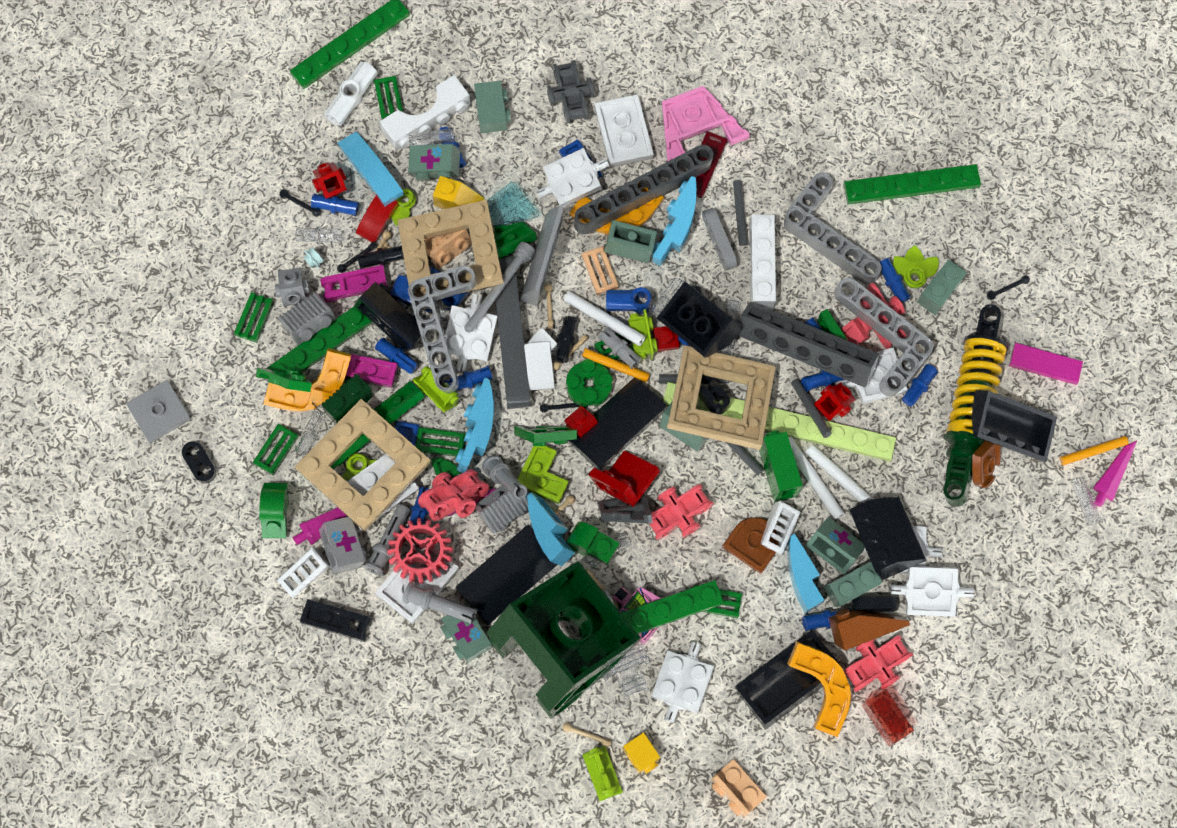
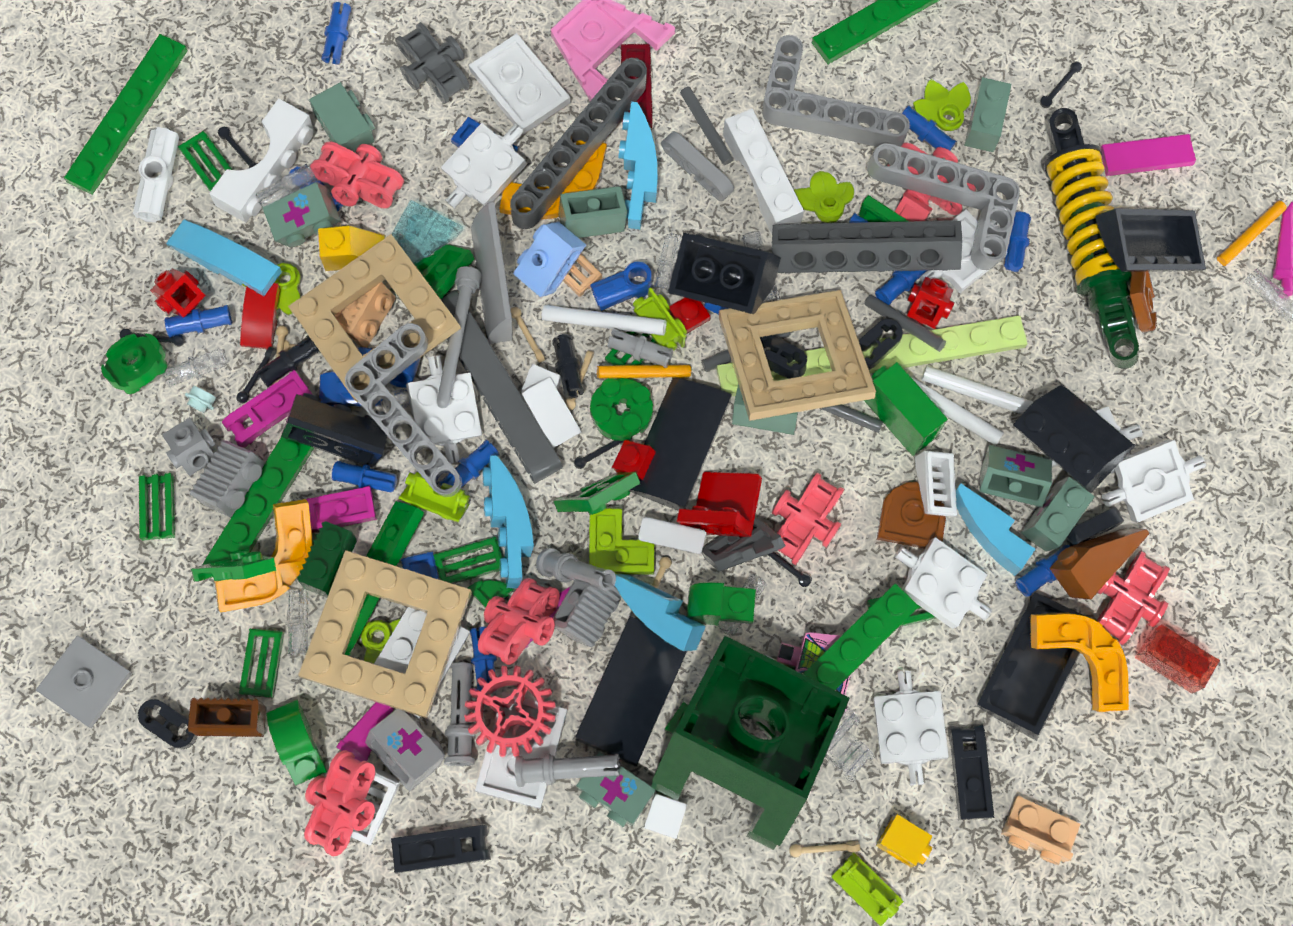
camera: 25 degrees left, 0 degrees up
(238, 474) = (227, 717): none -> reddish brown brick
(275, 224) = (128, 376): none -> green plate
(284, 561) = (339, 803): none -> coral axle
(409, 83) = (224, 133): none -> black hinge
(483, 149) = (357, 175): none -> coral axle
(491, 665) = (665, 816): none -> white slope
(514, 44) = (336, 33): none -> blue pin
(581, 483) = (672, 535): none -> white slope
(585, 260) = (548, 258): none -> light blue brick
(658, 552) = (803, 579): none -> black hinge
(708, 730) = (971, 773): none -> black plate
(751, 596) = (943, 583): none -> white plate
(785, 419) = (882, 349): none -> black beam
(800, 294) = (824, 193): none -> lime plate

